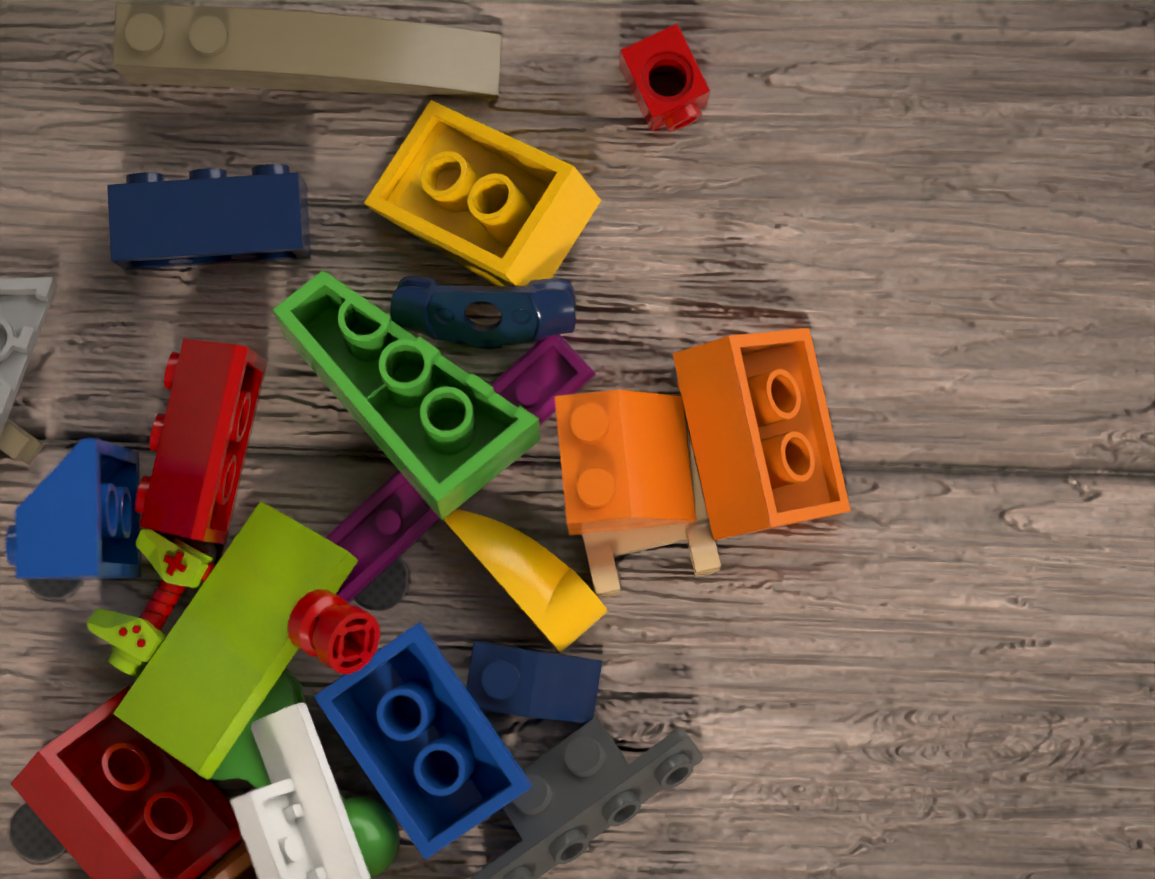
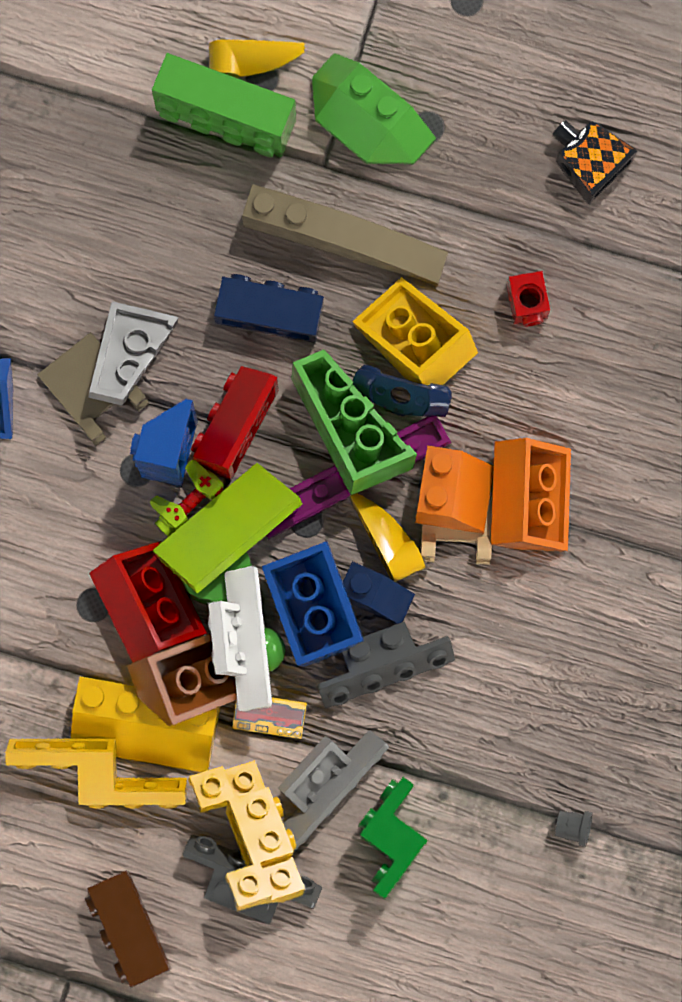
camera: 10 degrees right, 5 degrees down
(333, 631) = (282, 534): red wheel -> none

